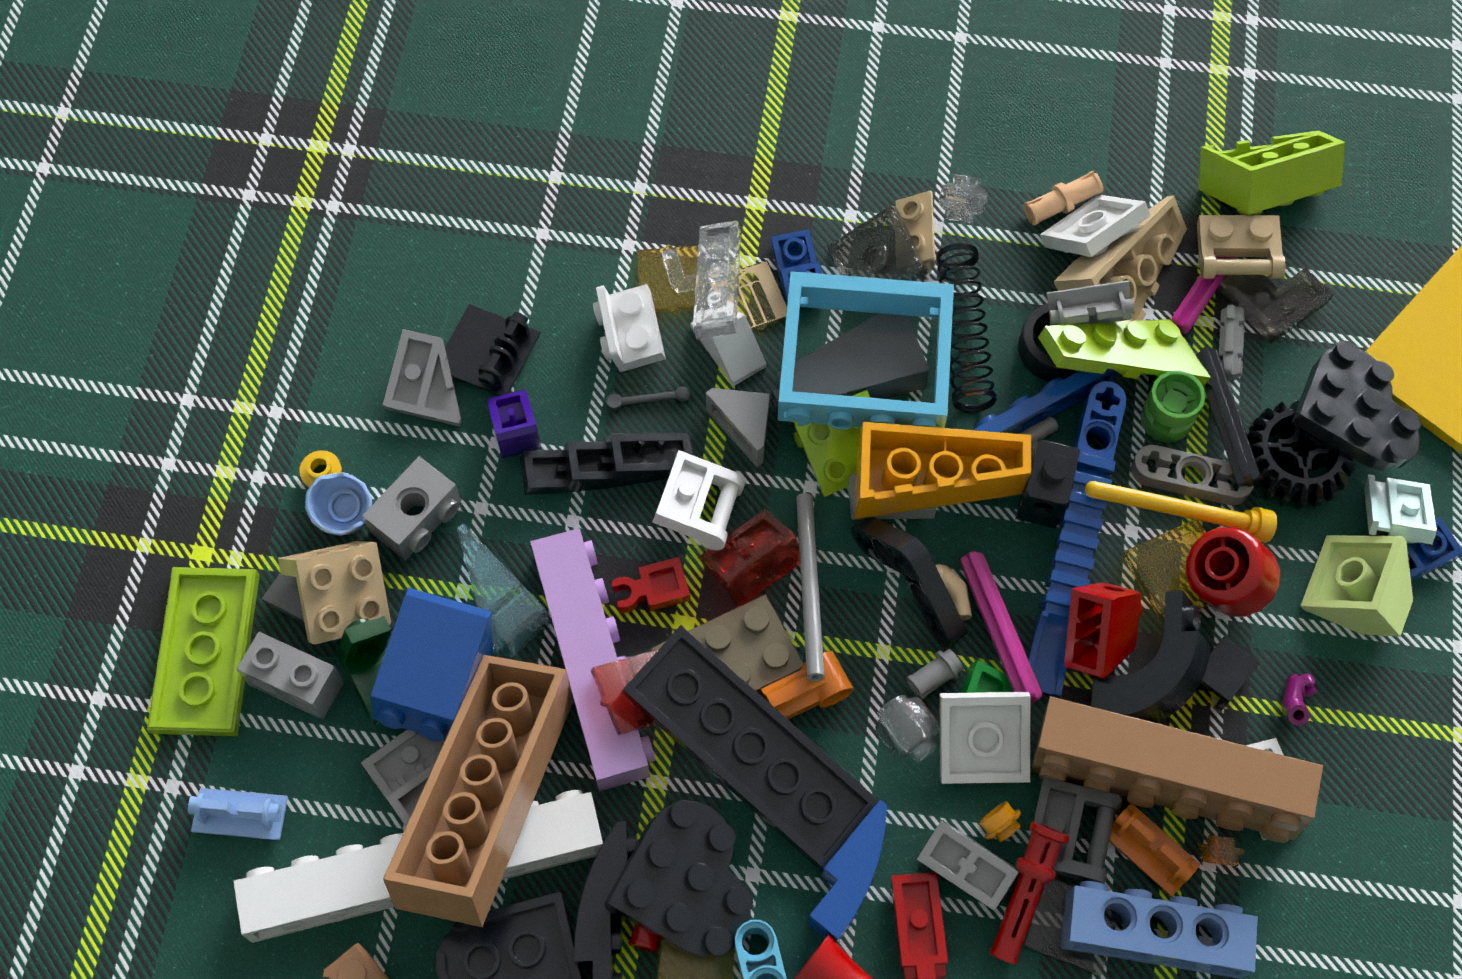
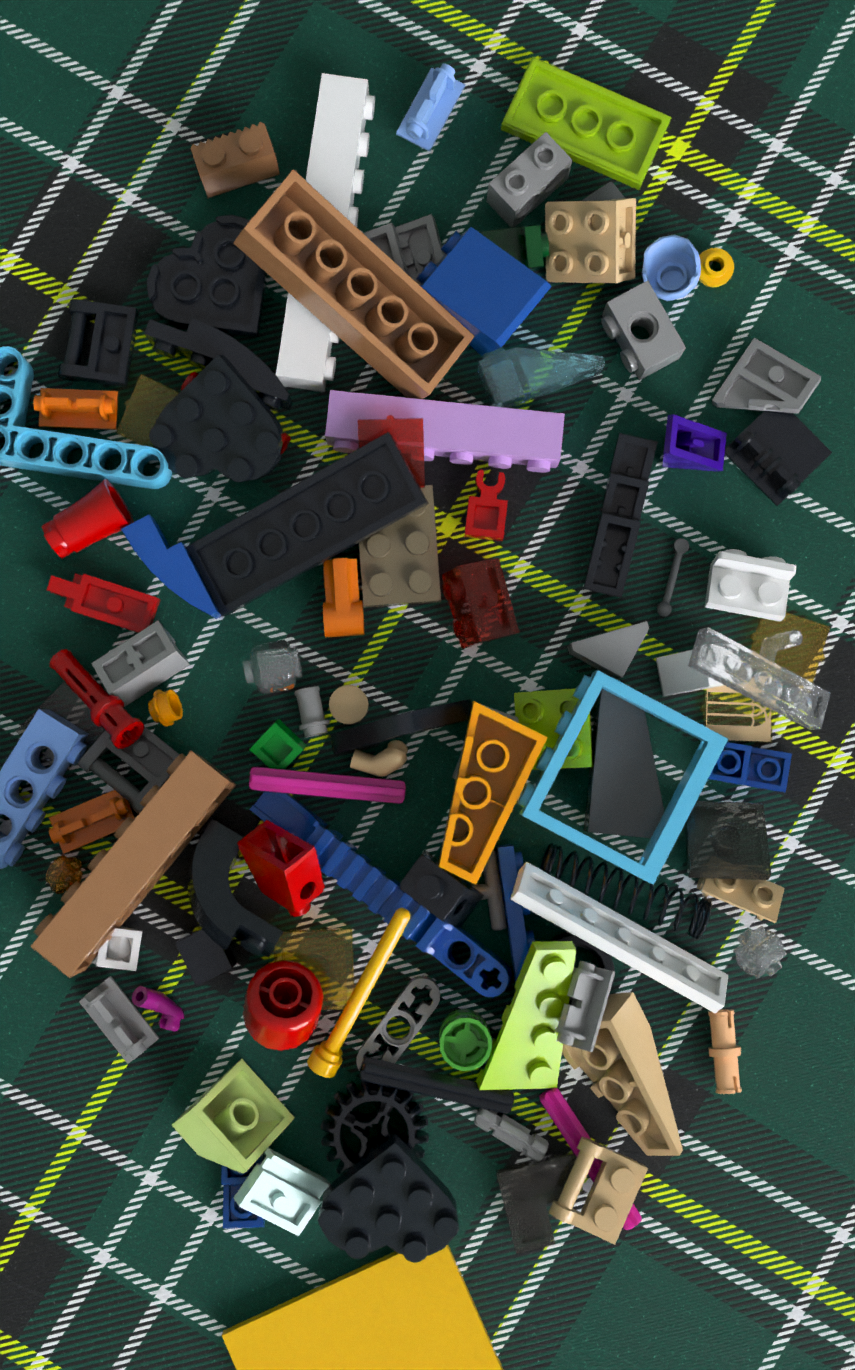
camera: 110 degrees right, 20 degrees up
(686, 495) = (557, 567): white plate -> none
(810, 588) = (428, 637): light grey piece -> none
(910, 643) = (348, 704): none -> tan tile
(985, 737) = (235, 723): white plate -> none
(1010, 312) = (620, 937): none -> white plate
(1095, 225) = (677, 1062): white plate -> none
(1272, 173) = (664, 1267): lime wedge -> none
(1333, 733) = (119, 1019): none -> light grey hinge

